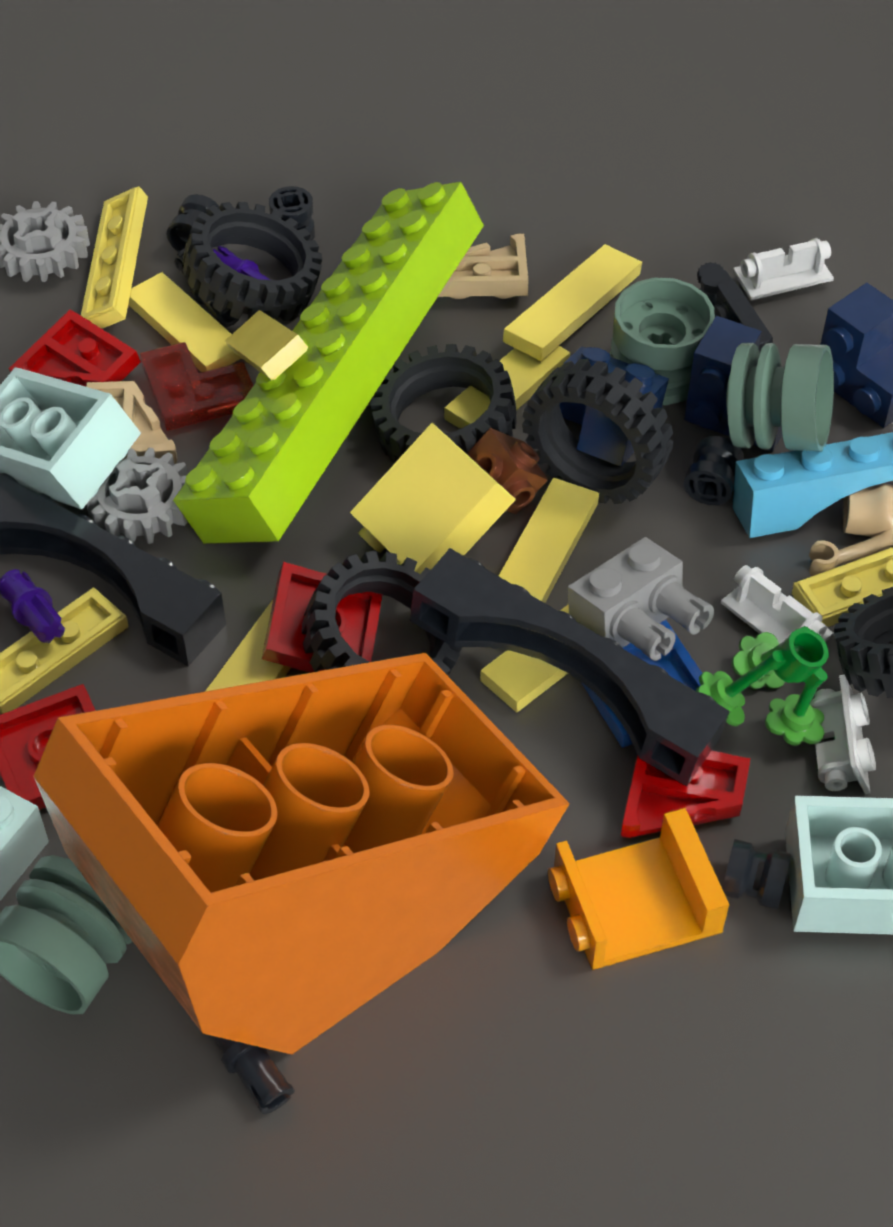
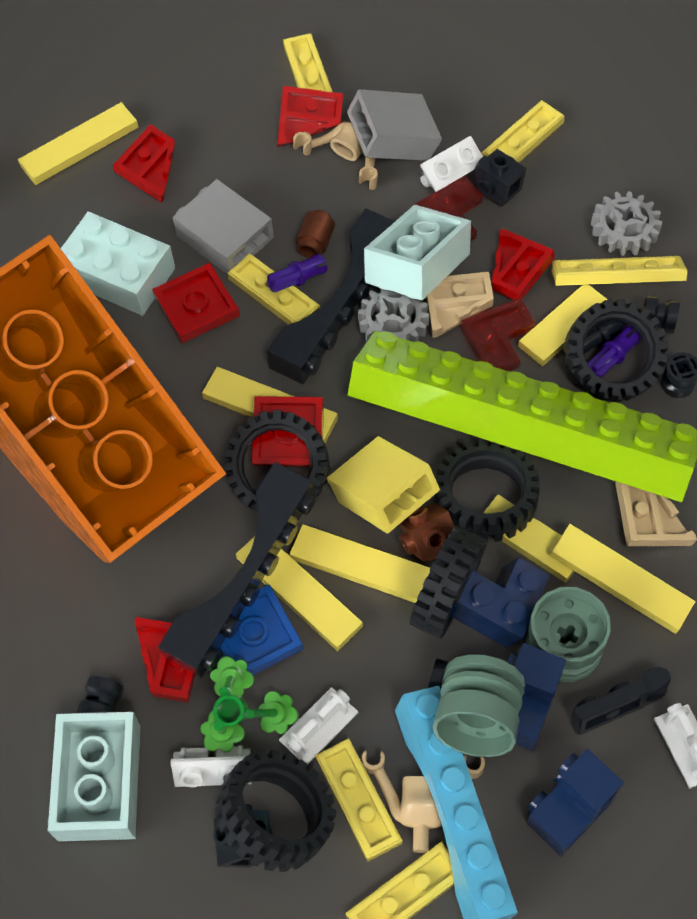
camera: 90 degrees right, 10 degrees up
(266, 345) = (512, 362): light yellow tile -> none
(635, 594) = (303, 609): light grey brick -> none
(640, 895) = (91, 628): light orange panel -> none

